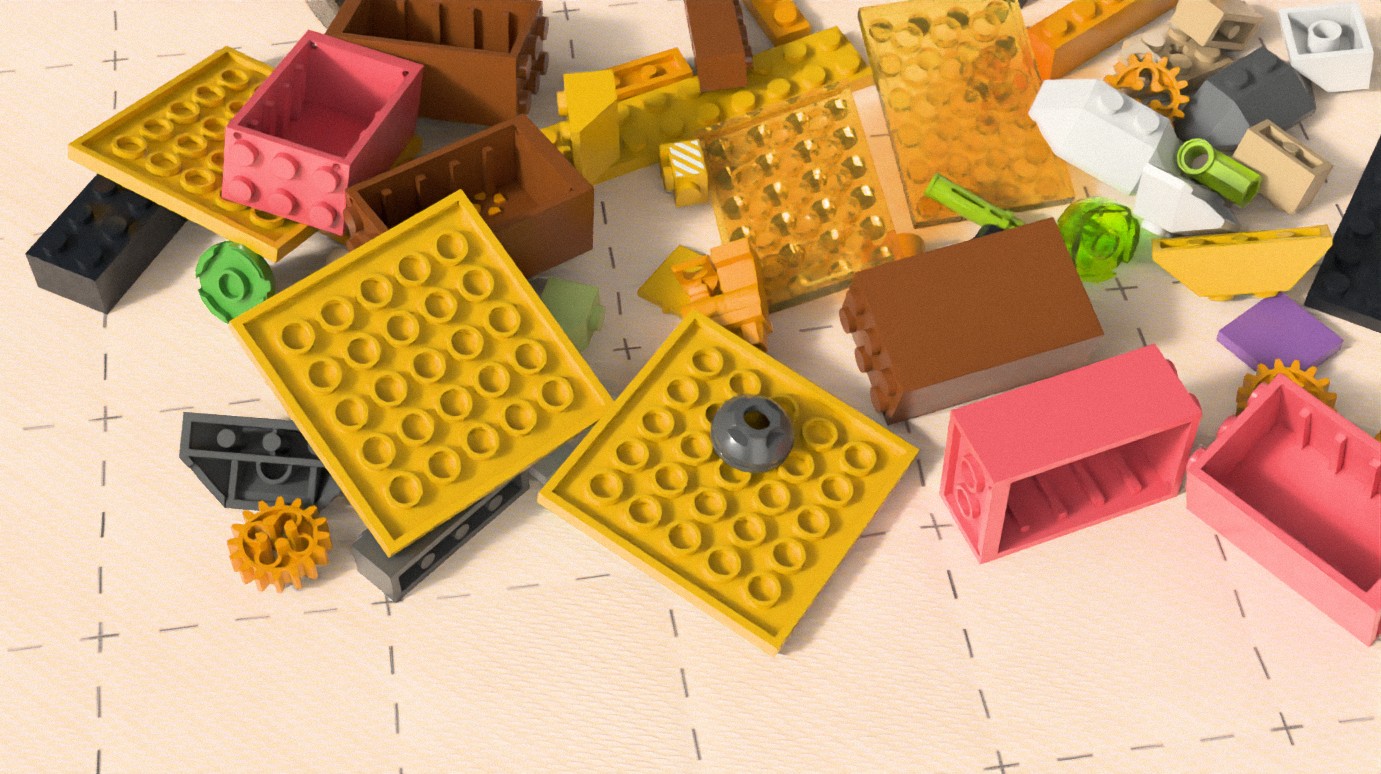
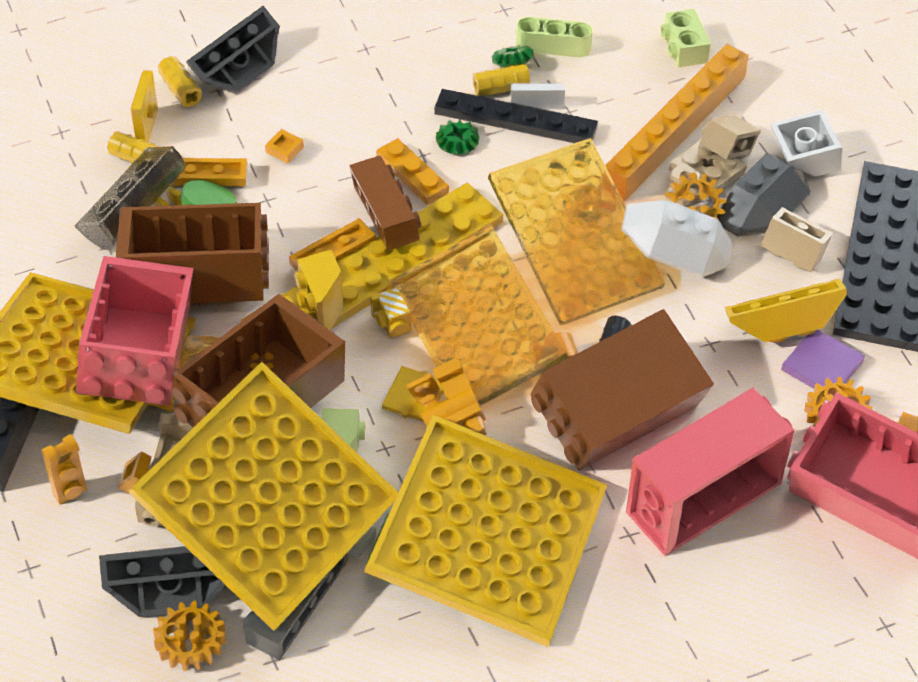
camera: 15 degrees left, 0 degrees up
(180, 294) = (64, 469): none -> light orange plate
(233, 279) = (102, 452): bright green tile -> none
(747, 447) = (492, 505): dark grey piece -> none
(969, 204) = (602, 305): lime pin -> none
(1099, 236) = (689, 309): clear neon green cylinder -> none
(1180, 206) = (740, 280): white wedge -> none
(1219, 173) = (759, 250): lime piece -> none

